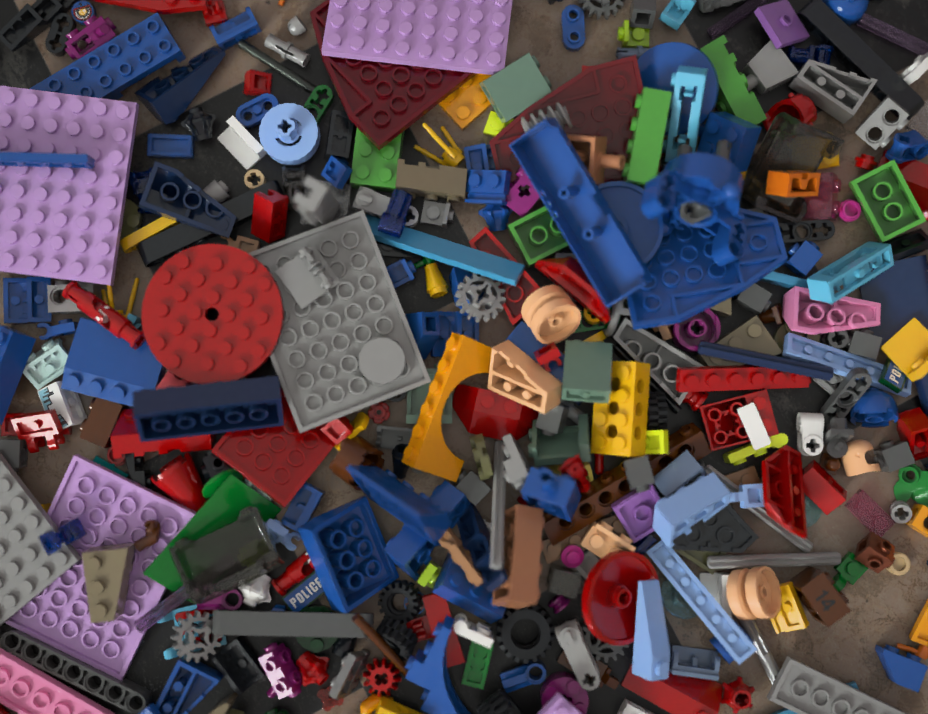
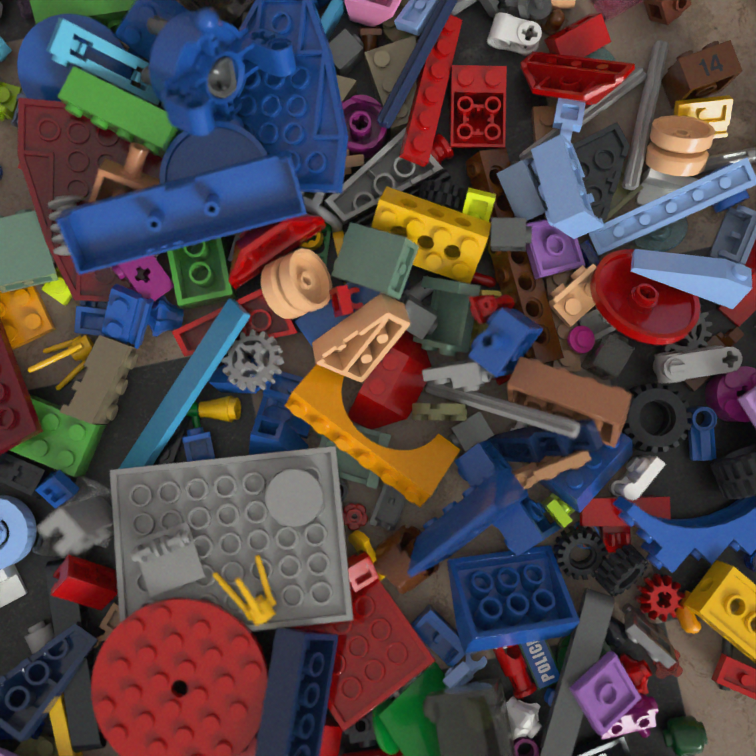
camera: 75 degrees left, 0 degrees up
(249, 174) = (31, 590): tan bush -> none
(289, 357) = (257, 608): none -> yellow plant
(295, 649) = (605, 693): none -> medium lavender plate
(376, 203) = (116, 443): light grey piece -> none
(380, 643) = (622, 590): reddish brown bar -> none
(393, 220) = (131, 436): clear blue piece -> none
(399, 468) = (426, 511): black cone -> none
(437, 214) = (143, 385): flat silver bracket -> none
(477, 665) = (677, 485): green plate -> none
(558, 603) = (630, 371): magenta bush -> none
(739, 454) = (514, 99): neon yellow hinge -> none
(754, 426) = (490, 90): white sticker -> none
(848, 571) = (678, 36): green plate -> none

